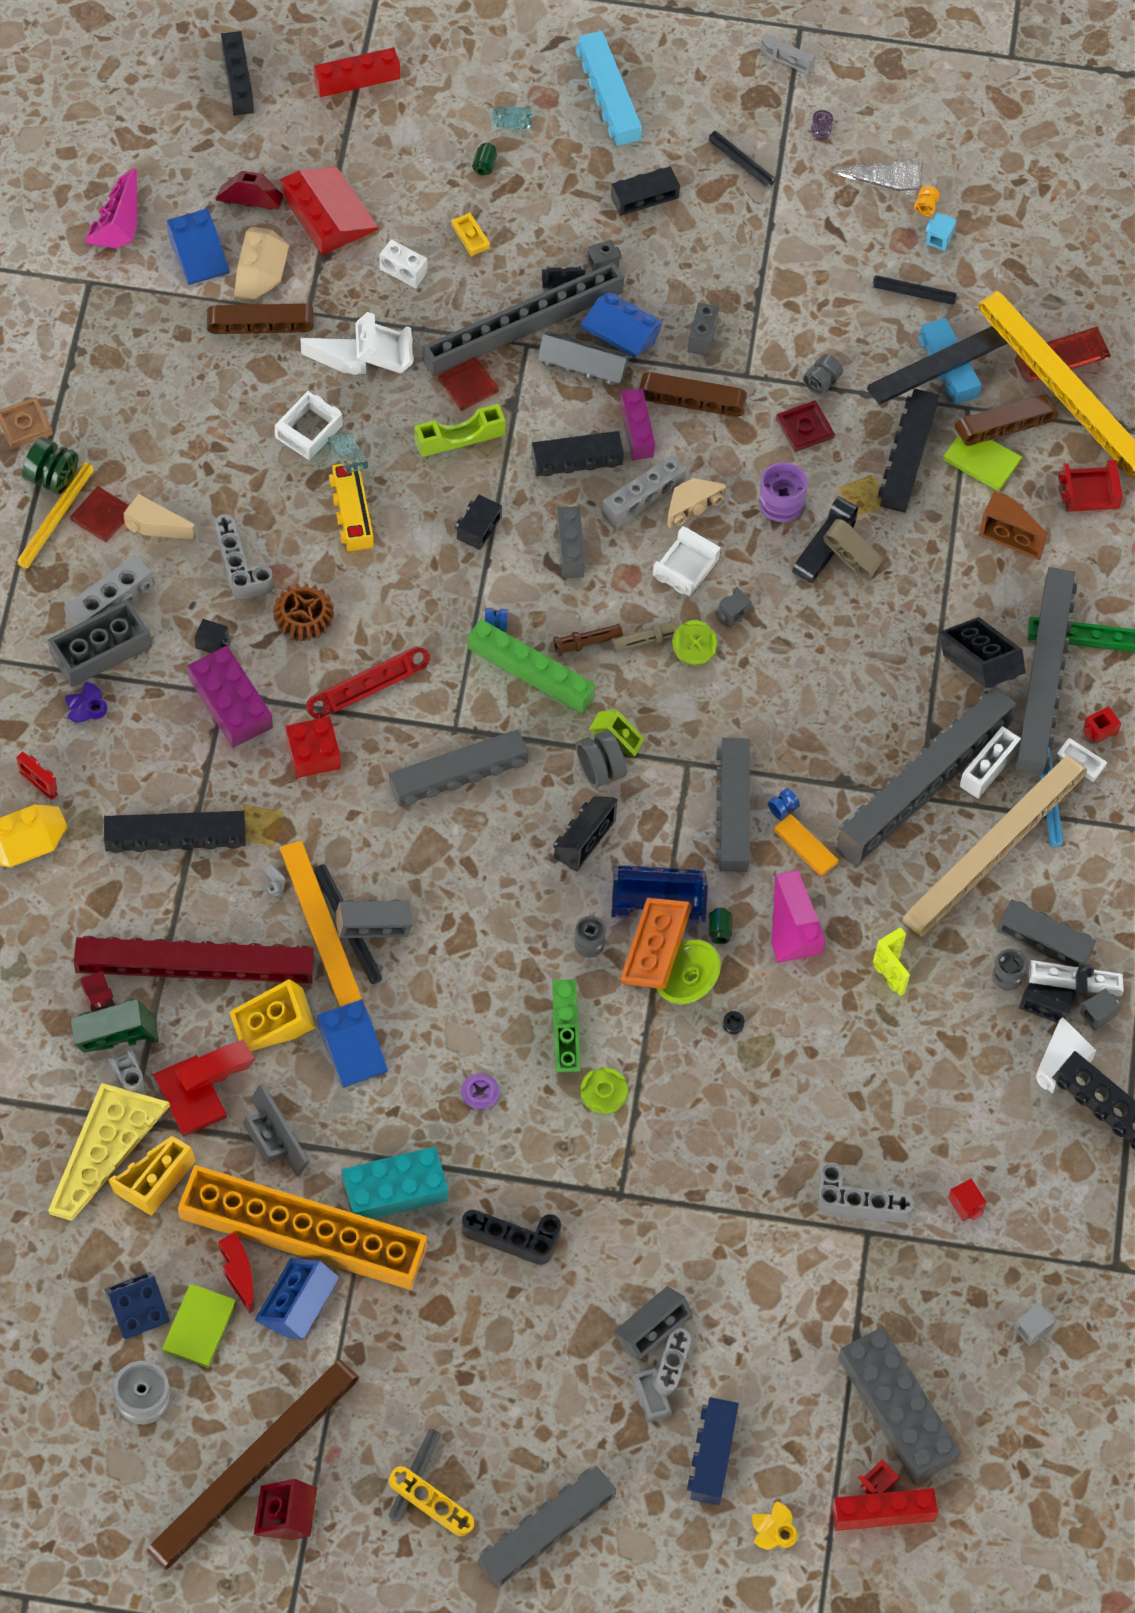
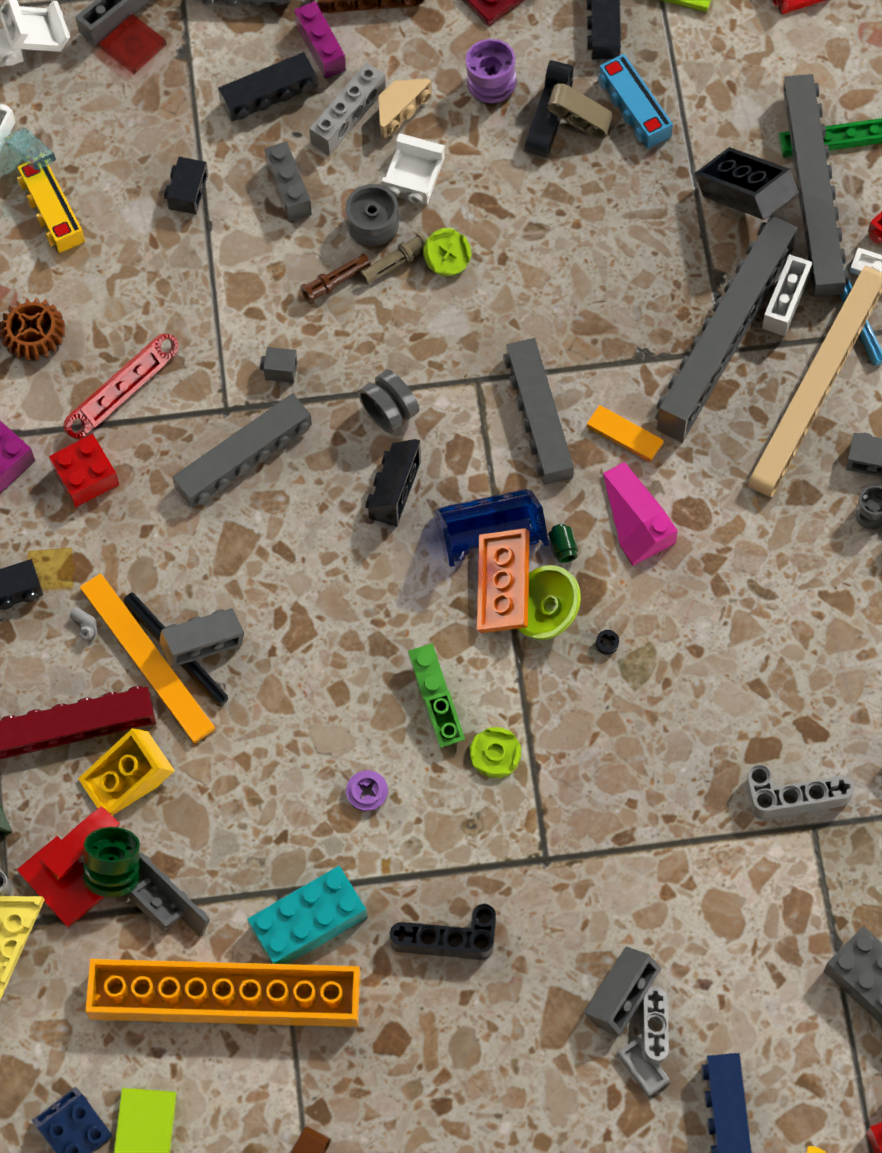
camera: 10 degrees left, 5 degrees up
(155, 1175) = (50, 982): yellow wedge -> none
(237, 1088) = (111, 861): none -> dark green wheel
(237, 1269) = (168, 1058): red slope -> none
(297, 1298) = (240, 1071): blue slope -> none
(351, 1043) = (217, 777): blue slope -> none
(482, 426) = (162, 83): lime arch -> none
(497, 618) = (235, 283): blue wheel -> none
(514, 701) = (279, 364): none -> dark grey brick
(531, 666) = (286, 322): bright green brick -> none
(590, 936) = (432, 592): dark grey wheel -> none
(625, 734) = (404, 366): lime slope -> none
(637, 592) = (372, 215): none -> dark grey wheel
(734, 607) = (476, 204): dark grey brick -> none
(783, 804) = (589, 396): blue wheel -> none
(863, 494) = (571, 50): clear yellow piece -> none
(887, 962) = (747, 535): neon yellow bracket -> none
(906, 554) = (635, 101): none -> dark azure brick
(1012, 526) = (735, 44): dark orange slope -> none

